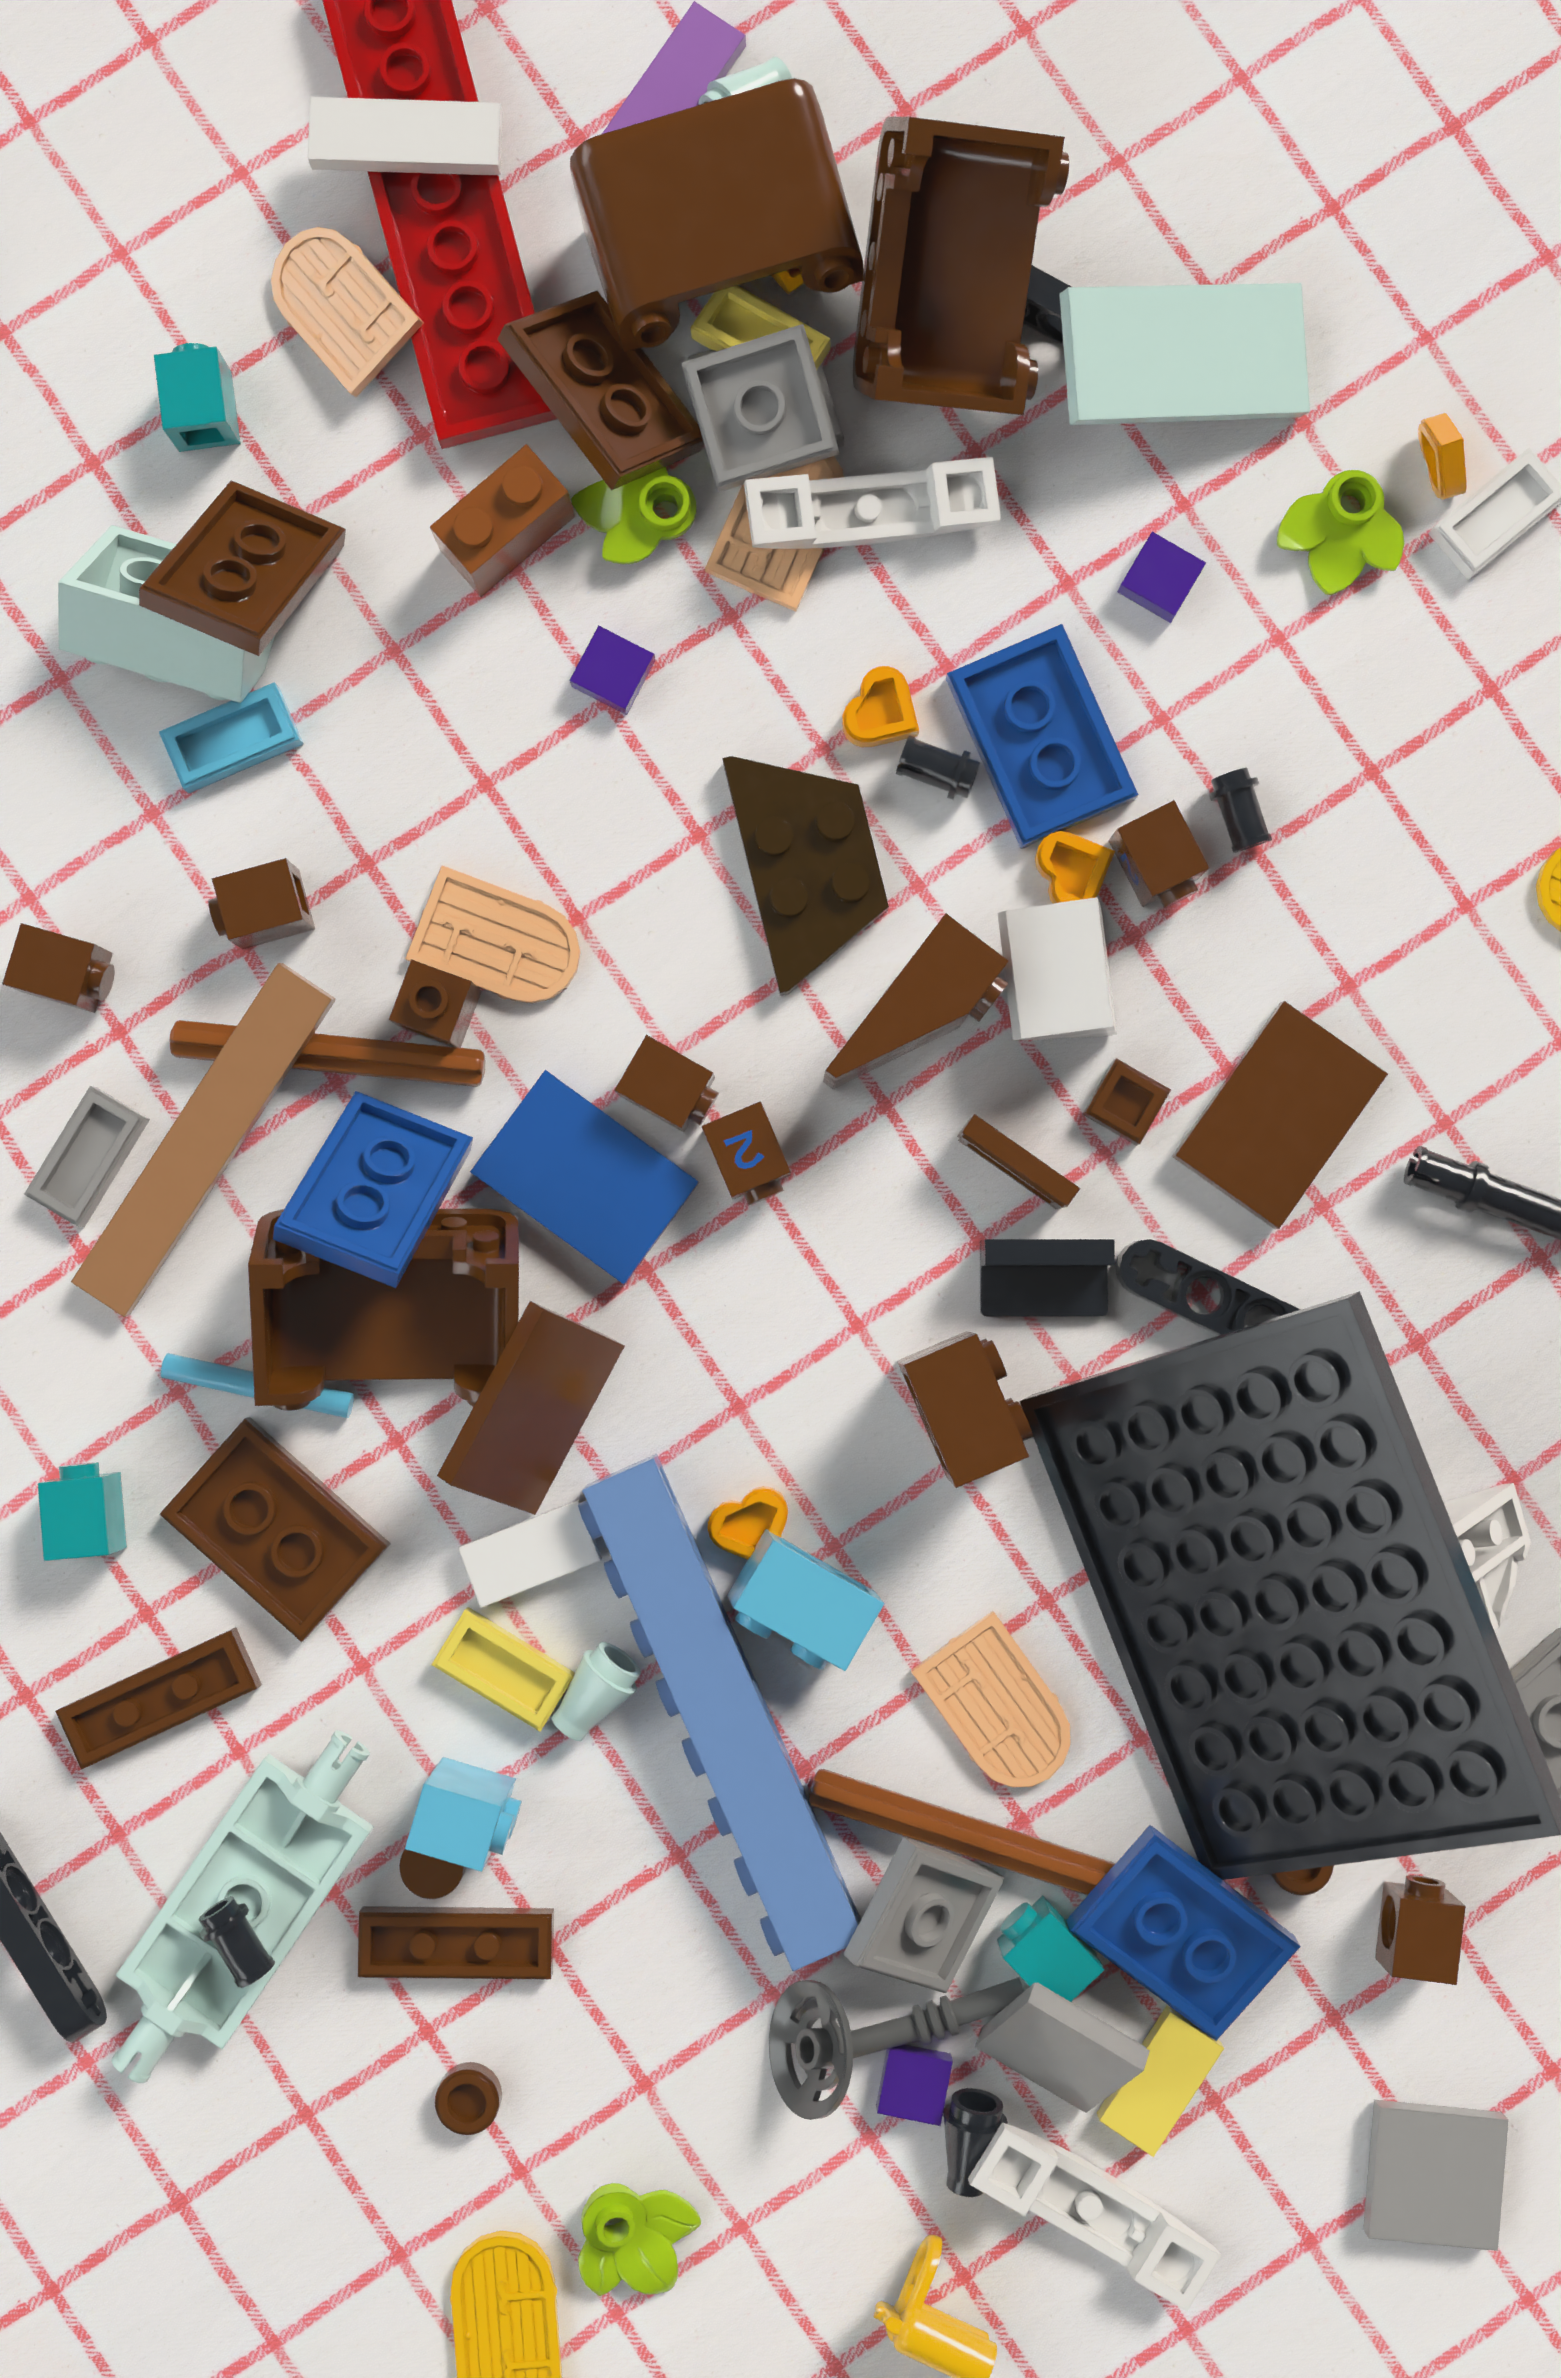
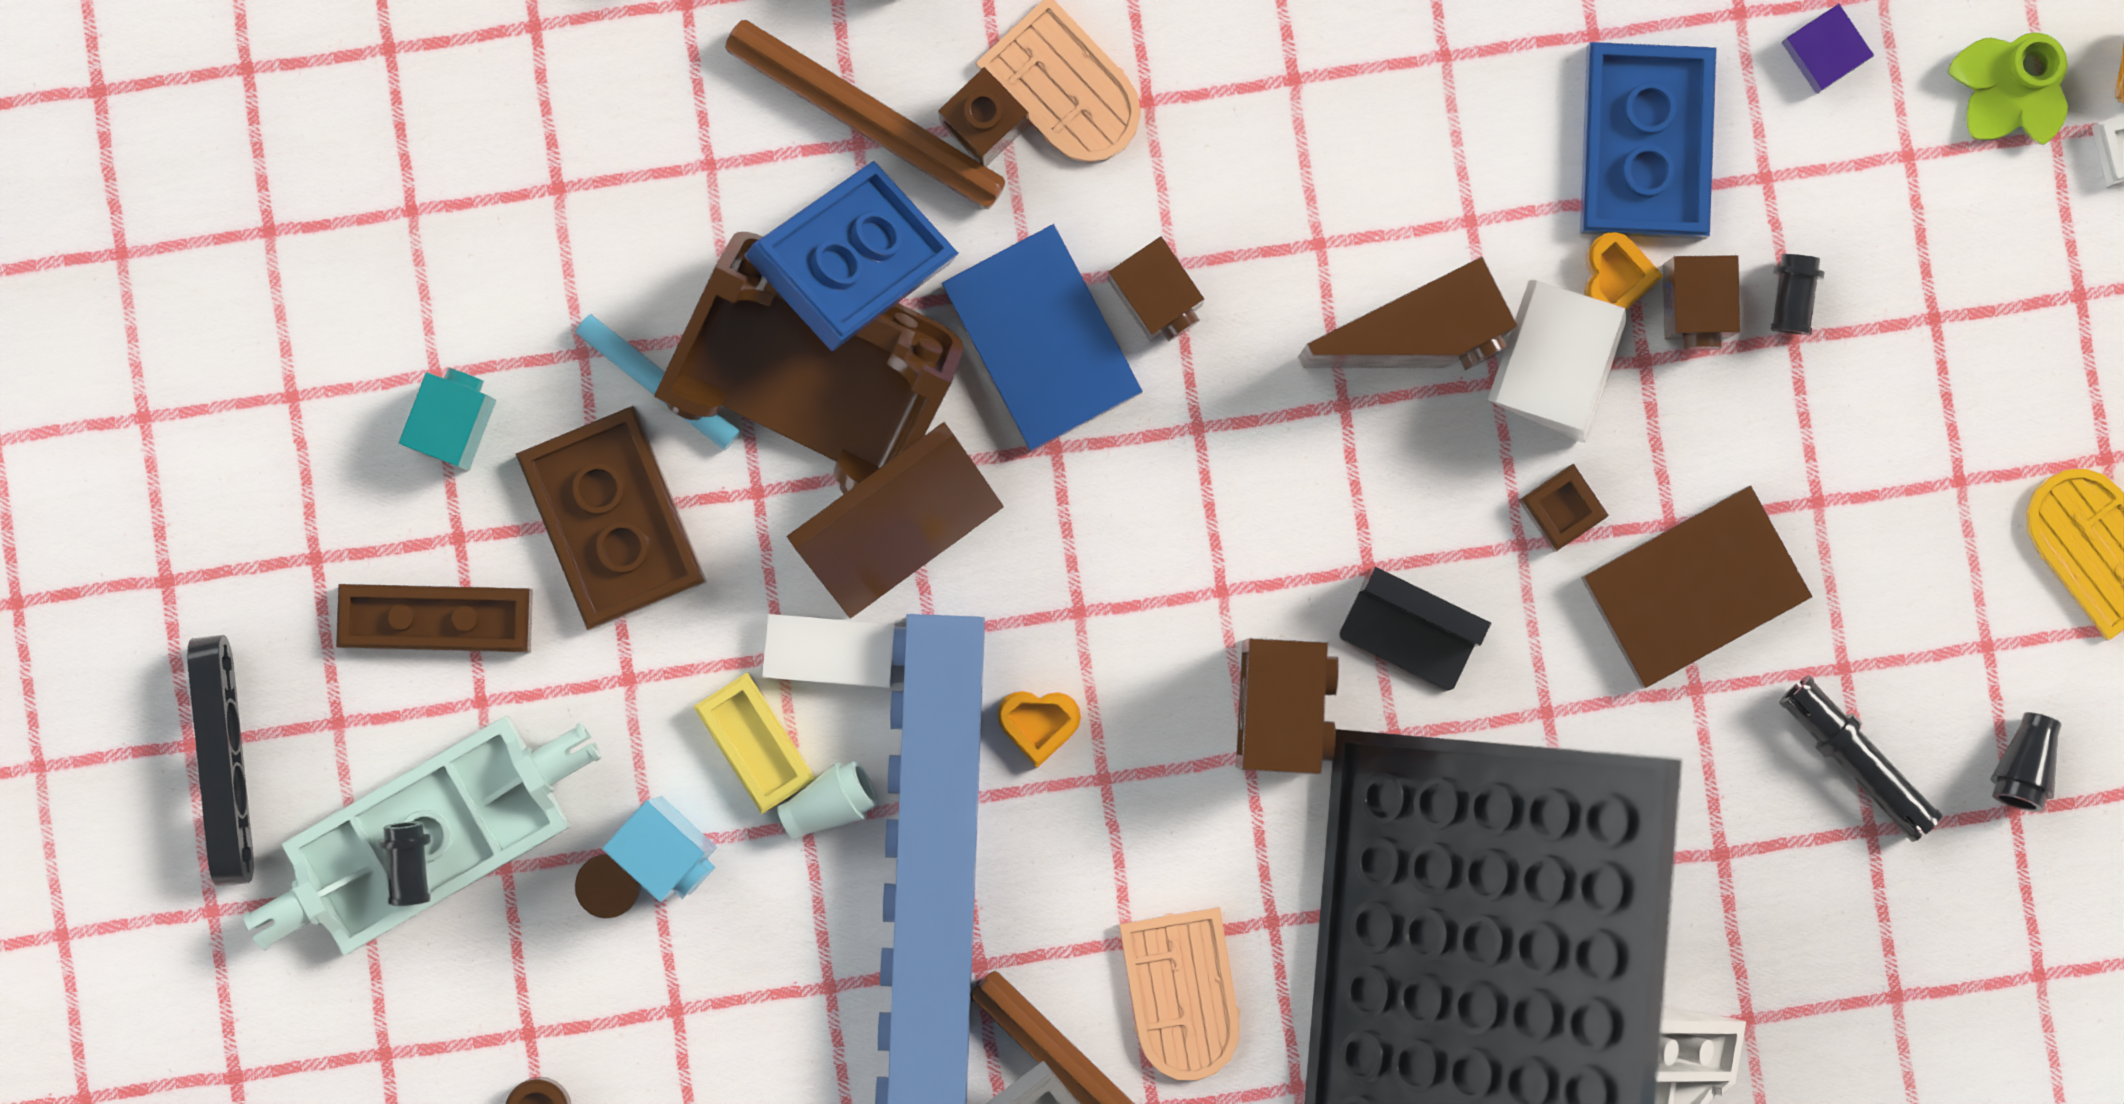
camera: 25 degrees right, 0 degrees up
(86, 1156) = (603, 102): light grey tile -> none
(203, 1139) = (718, 138): medium nougat tile -> none
(455, 1942) = (594, 966): reddish brown tile -> none
(748, 1153) = (1199, 387): reddish brown brick -> none
(804, 1602) = (1054, 811): medium azure brick -> none
(806, 863) = (1379, 151): dark brown wing -> none
(881, 711) = (1515, 47): light orange tile -> none
(938, 767) = (1540, 123): black pin -> none
(1017, 1163) = (1437, 513): reddish brown tile -> none
(1235, 1294) = (1577, 728): black beam -> none

